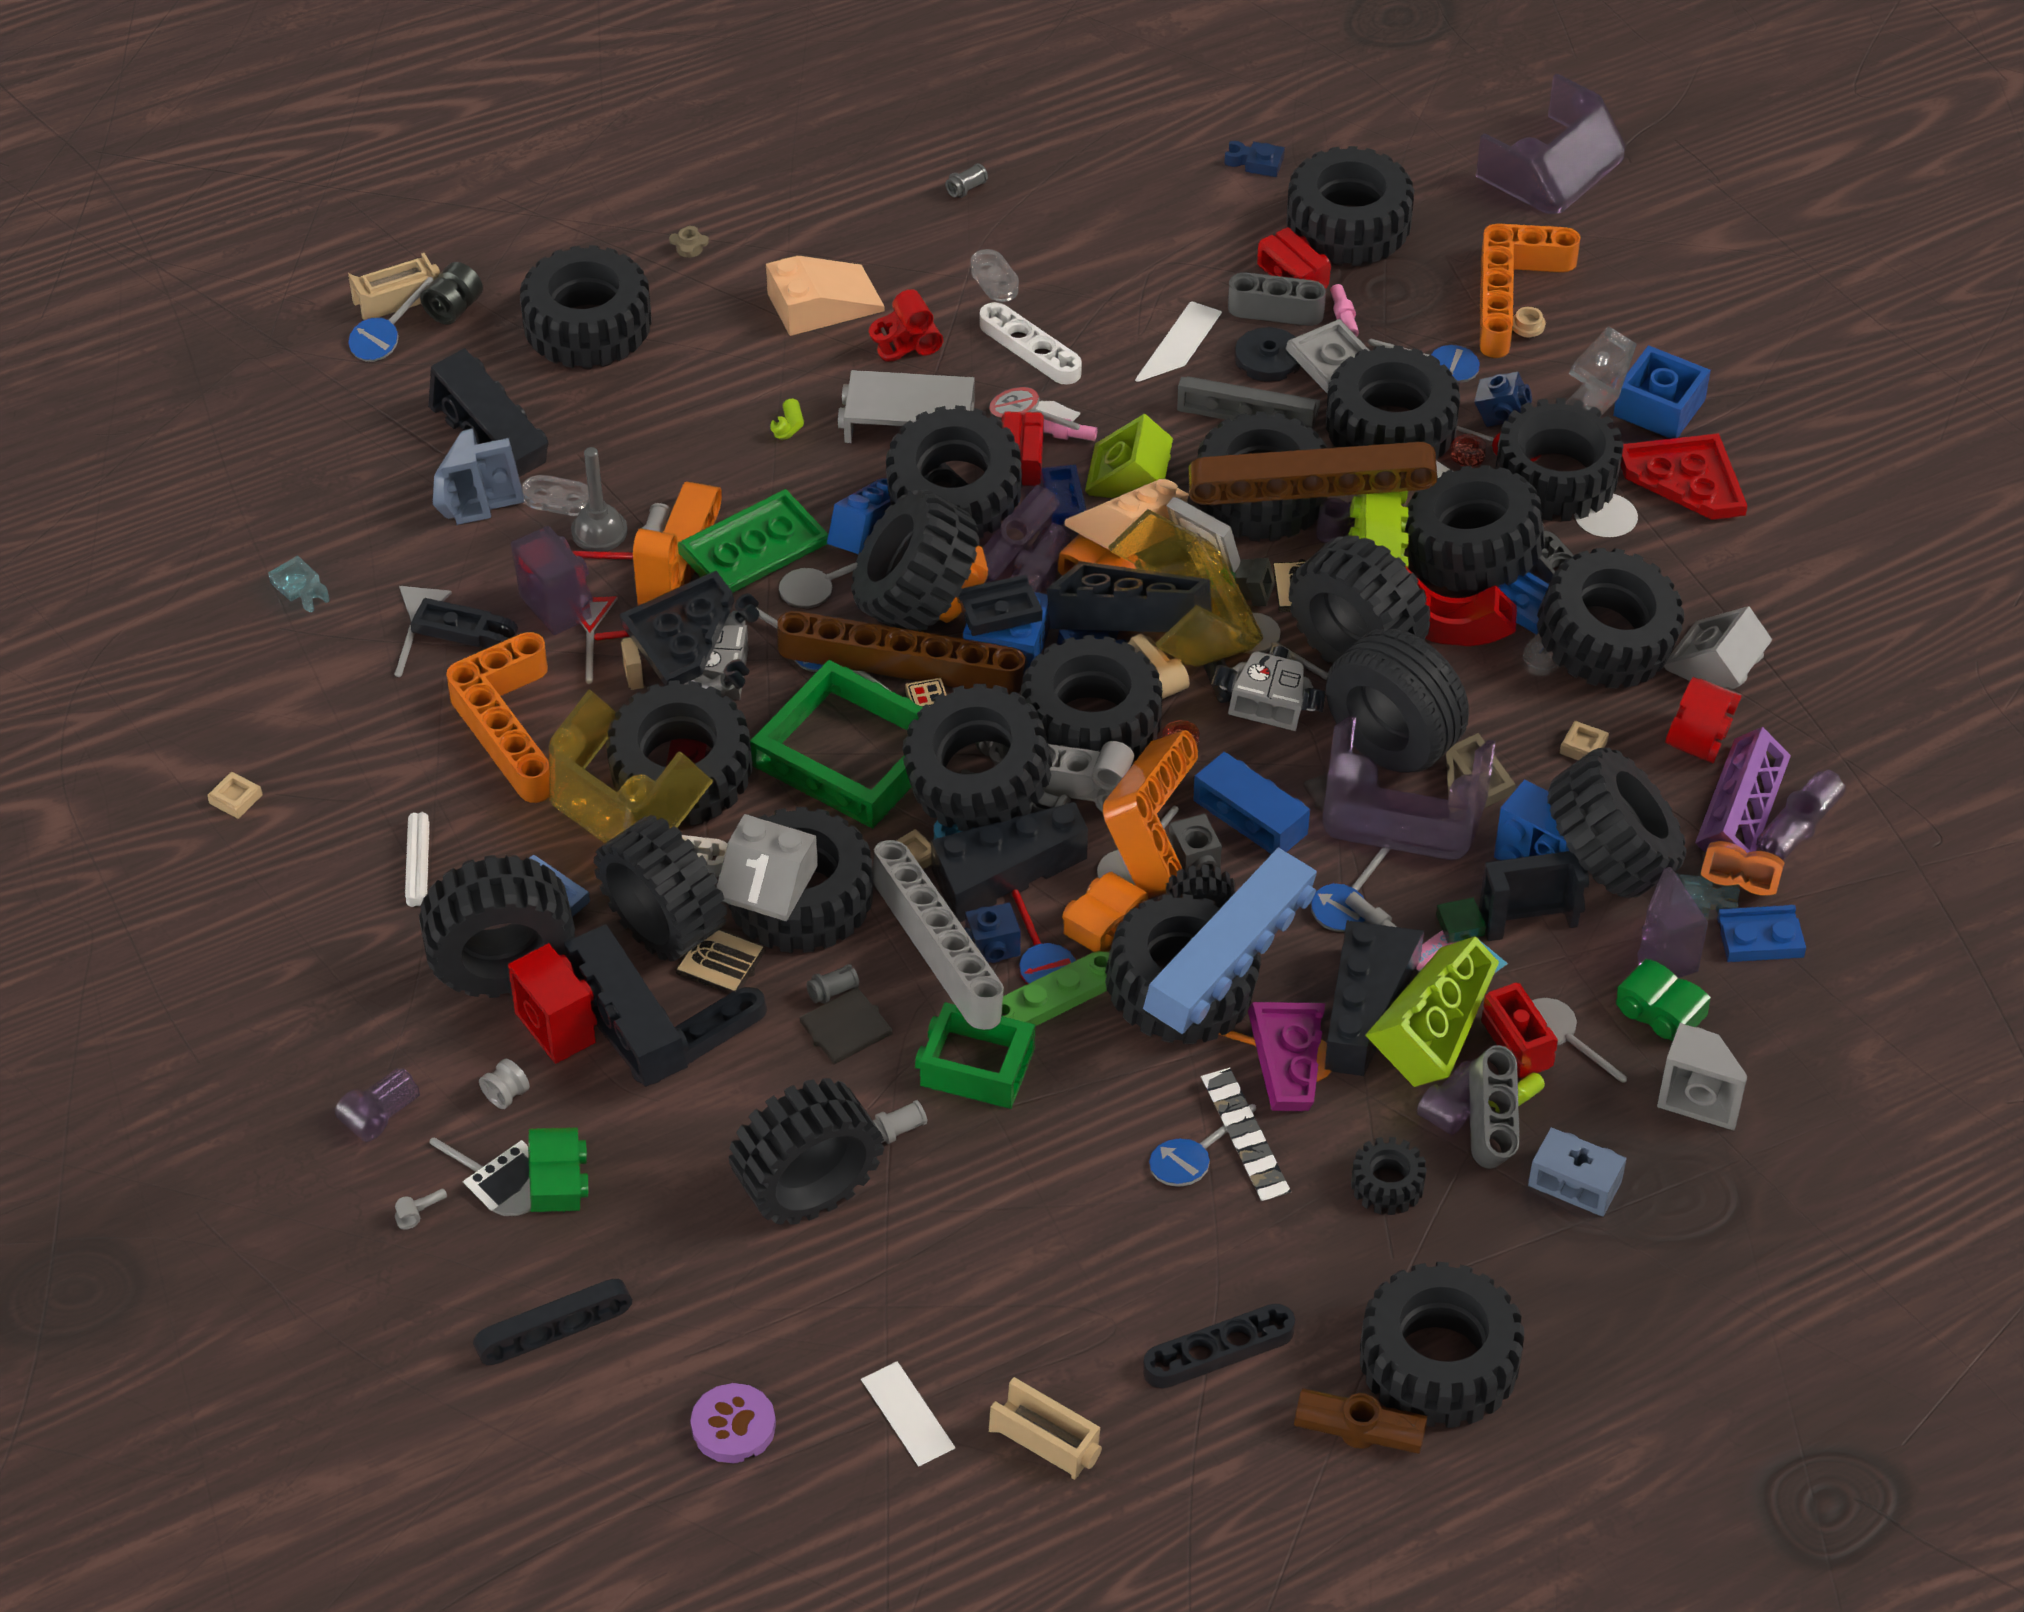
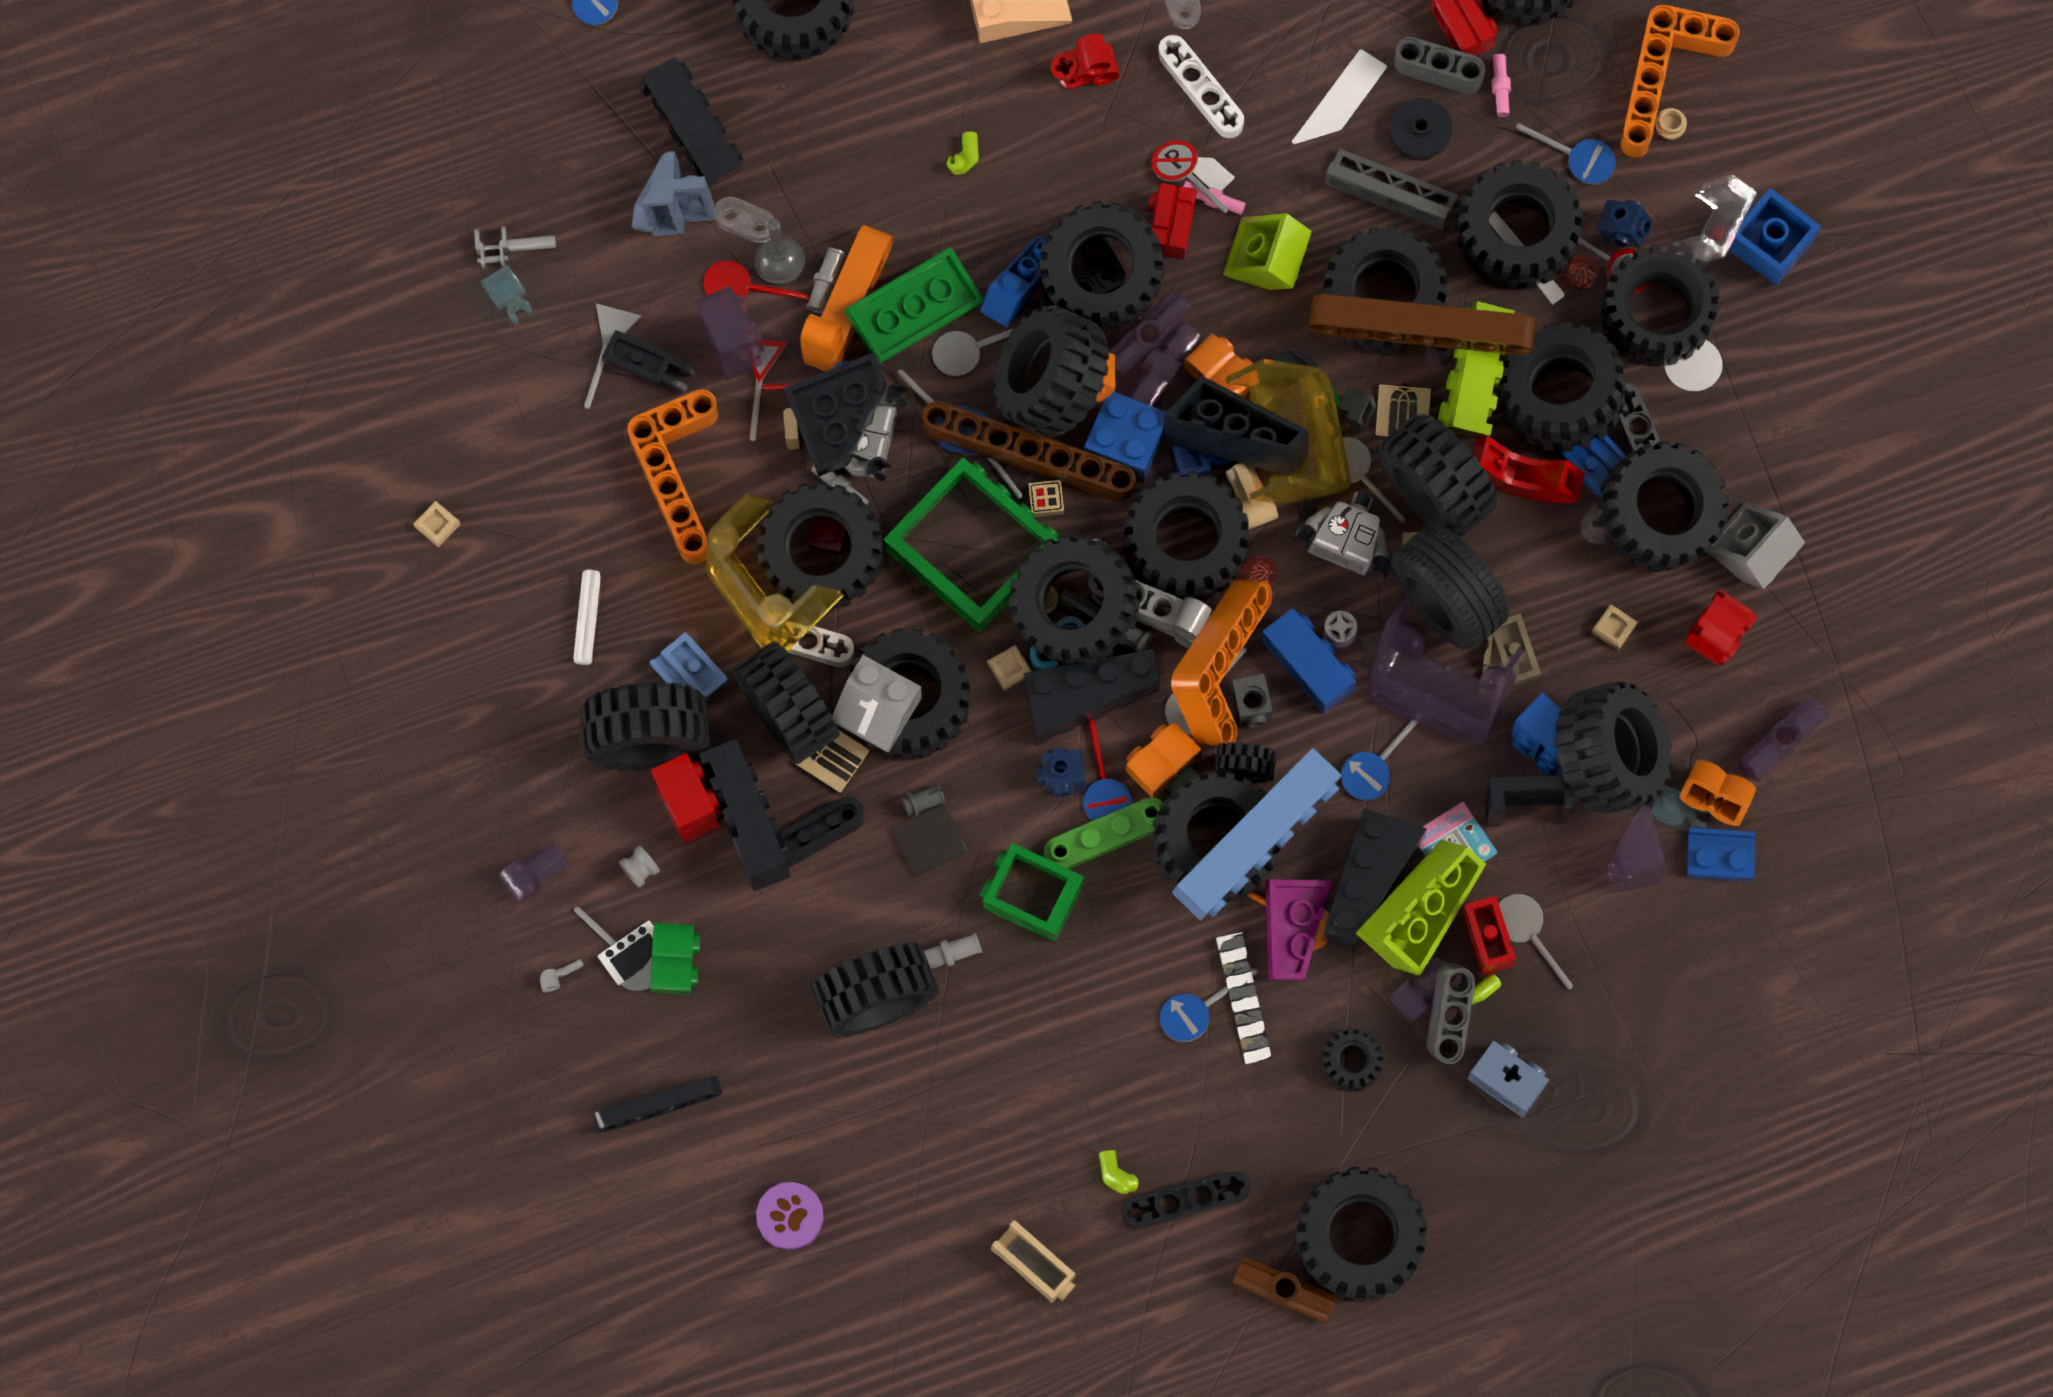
camera: 10 degrees right, 25 degrees up
(301, 544) = (511, 245): none -> light grey piece
(899, 397) = (1076, 156): light grey panel -> none
(908, 1413) = (929, 1224): white sticker -> none
(938, 935) = (1015, 785): light grey beam -> none
(999, 605) = (1119, 429): black plate -> none
(1066, 486) = (1202, 279): clear blue plate -> none
(1109, 520) = (1254, 324): light nougat slope -> none
(1129, 1331) = (1115, 1177): none -> lime arm
(1207, 527) = (1318, 356): light grey tile -> none
(1282, 770) = (1340, 622): none -> light grey wheel
(1324, 350) = (1478, 142): light grey tile -> none
(1367, 911) = (1394, 796): light grey bar -> none
(1460, 920) = (1466, 806): dark green tile -> none
(1661, 999) = (1618, 918): green brick -> none
(1688, 472) = (1776, 330): red plate -> none
(1702, 1078) = (1629, 1008): light grey slope -> none
(1739, 785) = (1735, 702): medium lavender fence -> none

